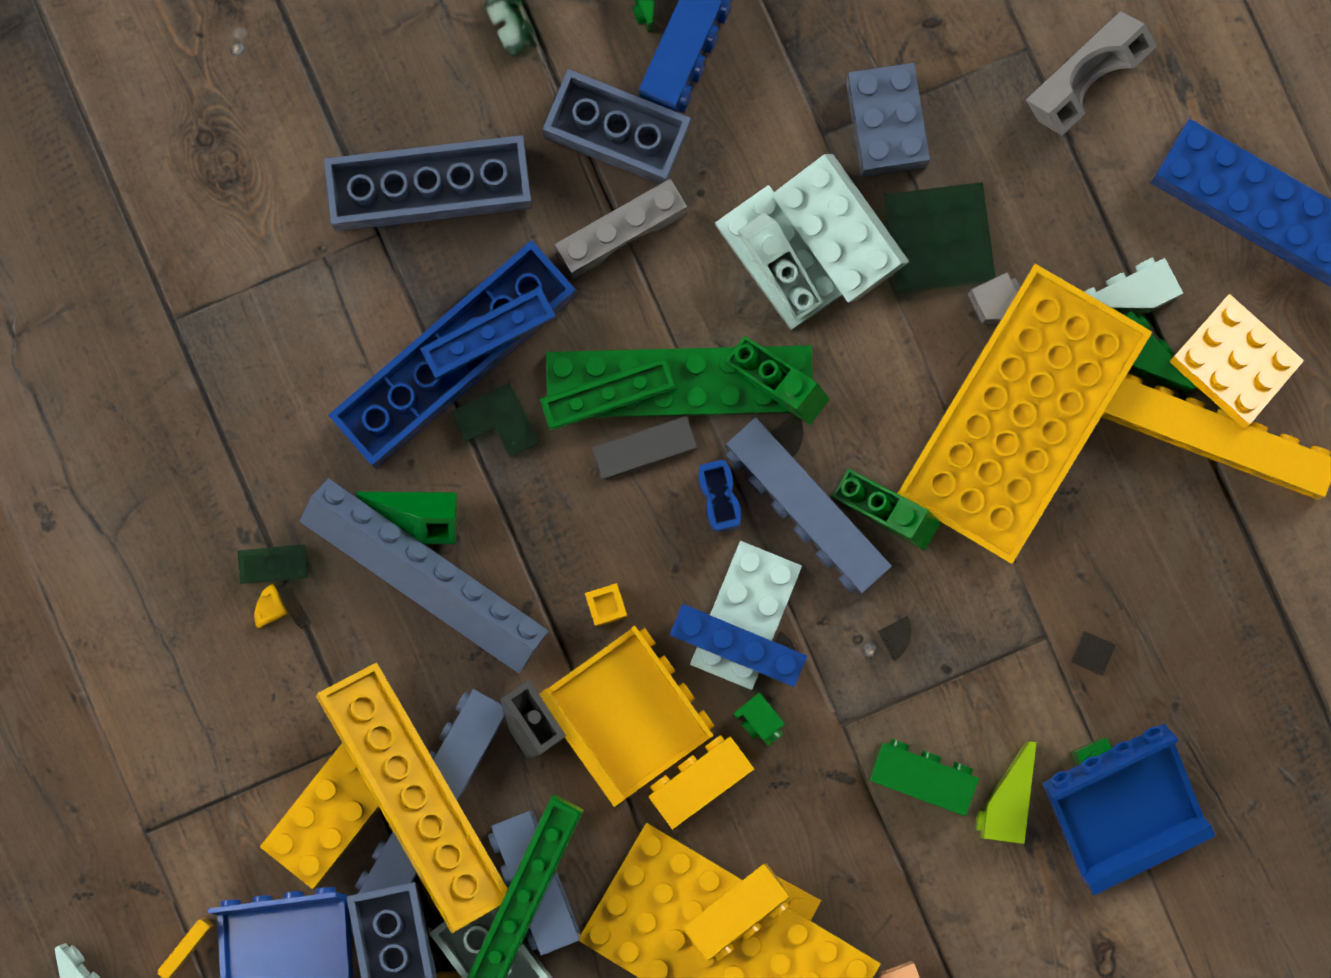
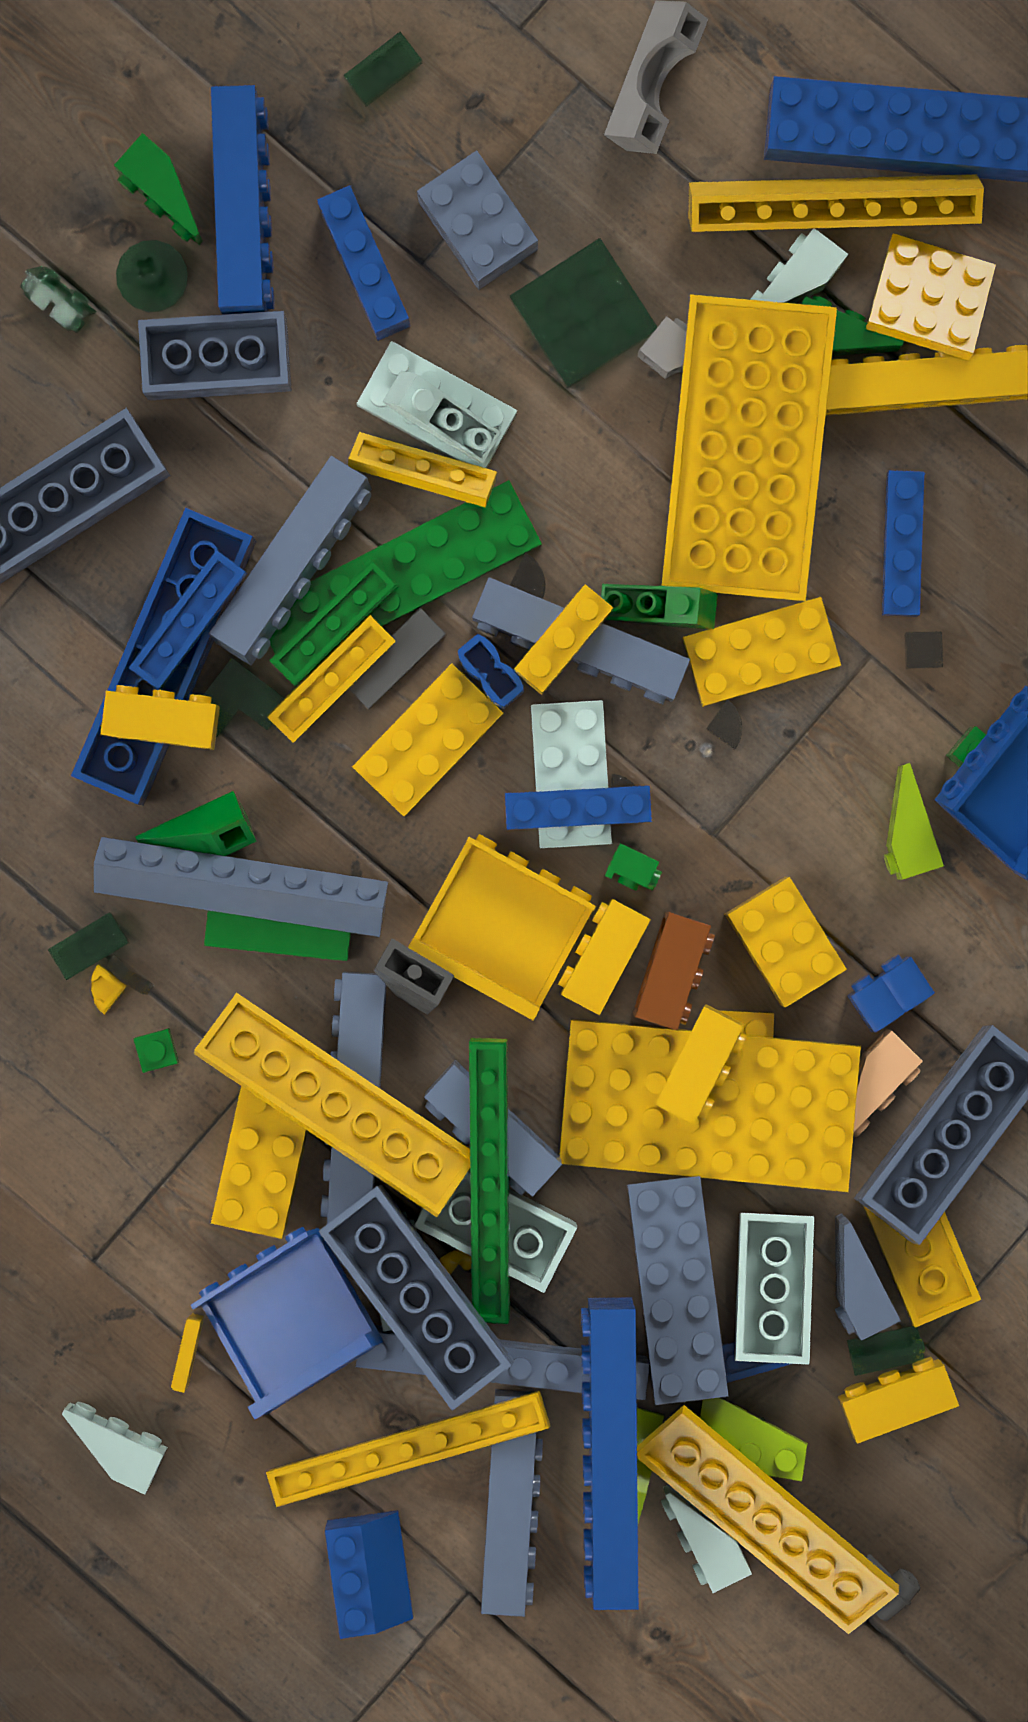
camera: 30 degrees left, 5 degrees up
(285, 679) = (156, 1050): none -> green plate
(425, 402) = (160, 718): none -> yellow brick
(432, 632) = (275, 937): none -> green tile
(583, 438) = (331, 678): none -> yellow plate
(596, 39) = (152, 276): none -> clear green piece
(598, 325) = (291, 561): none -> sand blue brick
(606, 235) = (274, 441): light grey arch -> none
(606, 605) = (431, 829): yellow panel -> none
(639, 528) = (428, 740): none -> yellow plate
(743, 302) = (422, 469): none -> yellow plate
(752, 822) = (673, 971): none -> dark orange brick
(776, 110) = (363, 263): none -> blue brick
(778, 380) = (493, 530): green slope -> none
(792, 498) = (563, 639): none -> yellow brick
(840, 227) = (482, 350): light aqua brick -> none
(859, 843) = (785, 941): none -> yellow brick
(924, 777) = (817, 848): green brick -> none
(928, 931) = (890, 993): none -> blue brick
(955, 589) = (761, 651): none -> yellow plate
(1117, 555) = (903, 543): none -> blue plate
(1192, 246) = (835, 203): none -> yellow brick

